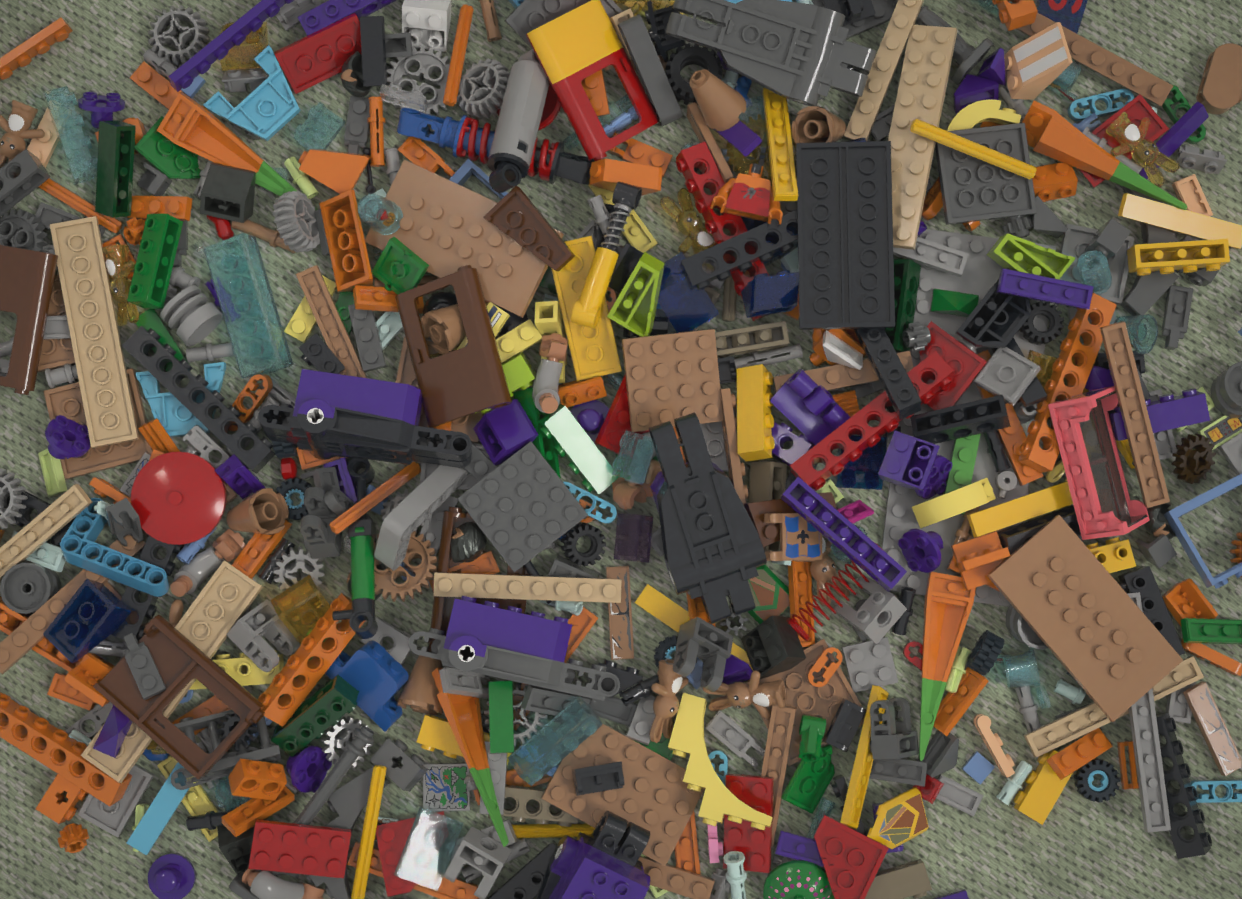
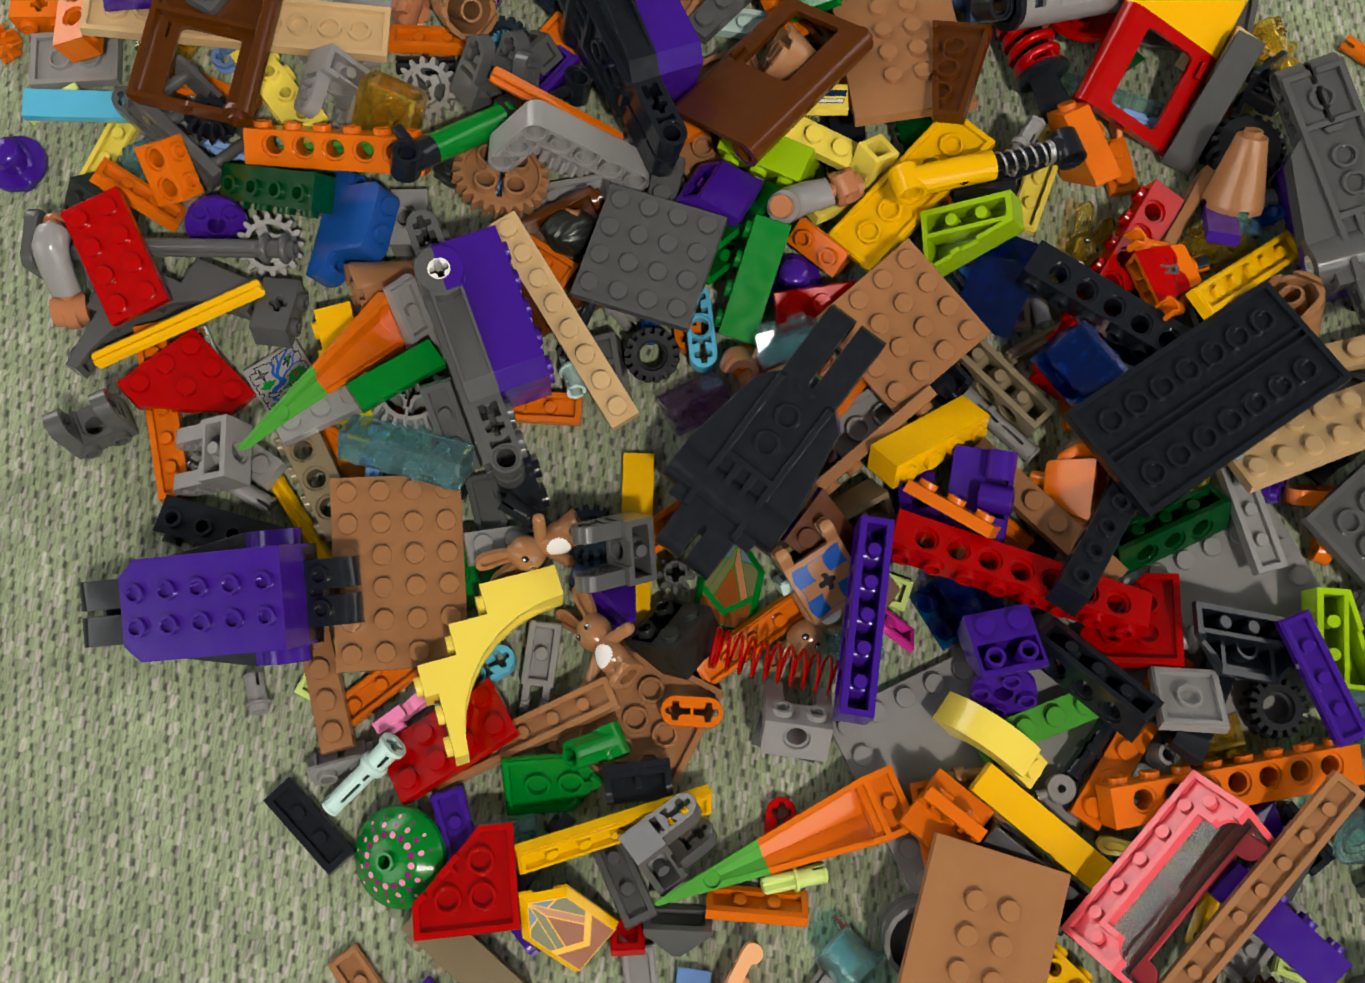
camera: 50 degrees right, 10 degrees down
(209, 820) = (92, 151): black pin -> none
(288, 468) = (532, 17): red tile -> none
(428, 849) = (197, 392): clear light blue tile -> none
(596, 92) = (1147, 65): orange hinge -> none
(598, 778) = (391, 525): black hinge -> none
(621, 617) = (599, 448): medium nougat tile -> none
(808, 432) = (953, 507): none -> orange plate
(840, 352) = (1067, 488): white slope -> none
(869, 664) = (730, 768): light grey plate -> none
(906, 598) = (814, 769): black pin -> none
(916, 336) = (1150, 565): dark grey gear -> none
(921, 549) = (908, 735): dark purple plate -> none
(953, 302) = (1214, 584): green slope -> none
(985, 652) = (838, 899): black bush -> none

